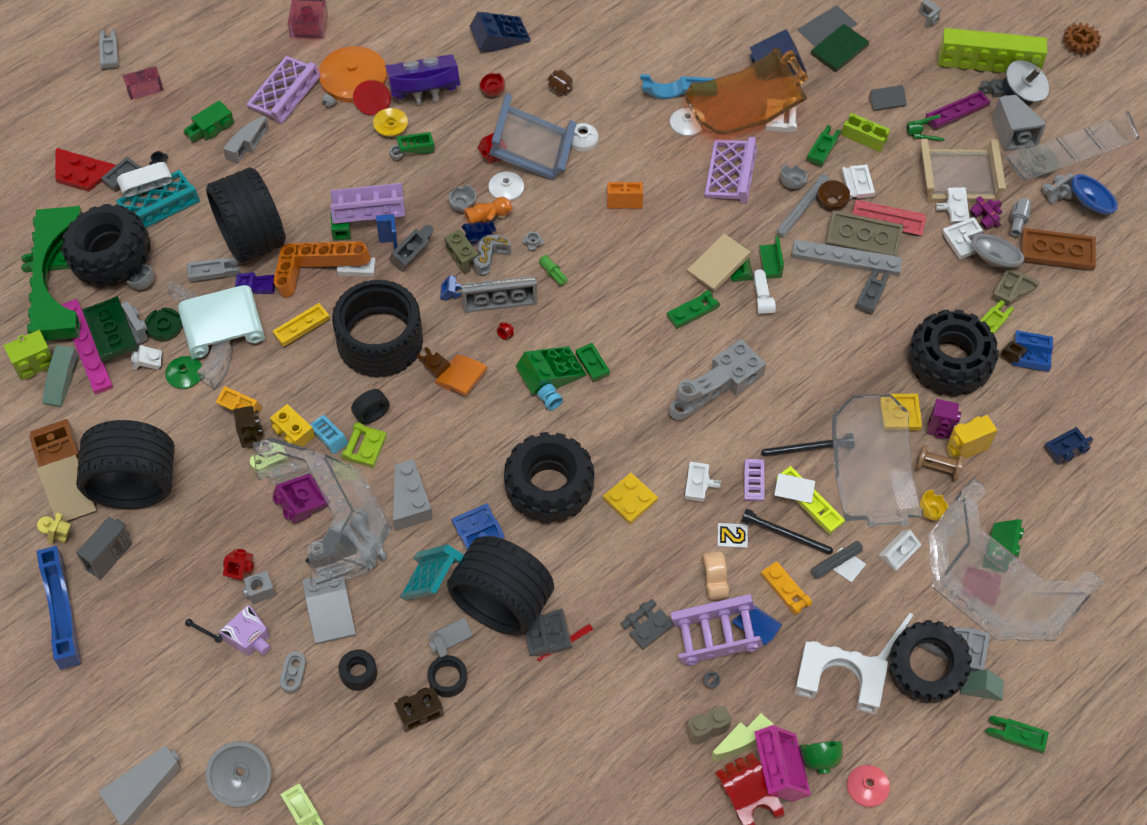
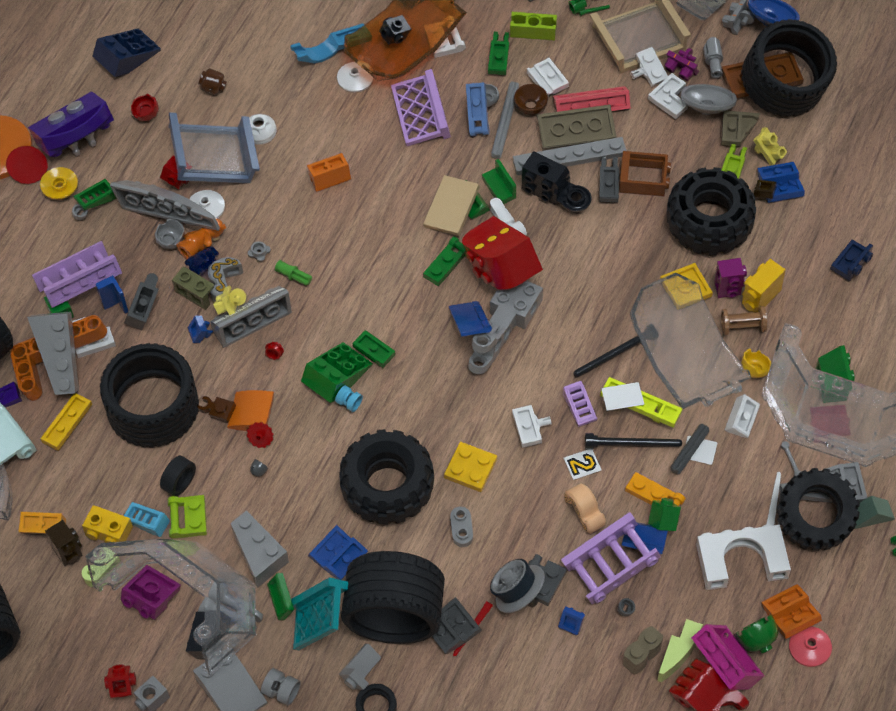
camera: 20 degrees left, 0 degrees up
(318, 260) = (57, 348): none -> light grey wedge
(371, 625) = (279, 686): none -> light grey wheel
(409, 546) = (280, 596): none -> green tile
(443, 427) = (258, 468): none -> dark grey hinge
(458, 398) = (260, 434): none -> red piece
(465, 168) = (161, 203): none -> light grey wedge
(484, 272) = (229, 300): none -> light yellow hips
(598, 547) = (461, 525): none -> light grey plate
(619, 620) = (517, 585): none -> light grey piece
(656, 671) = (571, 620): none -> blue tile
(687, 366) = (470, 318): none -> blue windscreen
(738, 92) = (395, 29): none -> black brick
(739, 319) = (500, 254): none -> red brick
(780, 186) = (477, 108): none -> medium blue plate
(784, 610) = (664, 514): none -> green brick
(818, 275) = (552, 183): none -> black brick
(864, 746) = (792, 611): none -> orange slope
(912, 285) = (646, 160): none -> dark orange window
(928, 592) = (785, 446): none -> light grey hinge
(1034, 313) = (767, 145): none -> light yellow hips
(1101, 224) = (806, 43): none -> black tyre

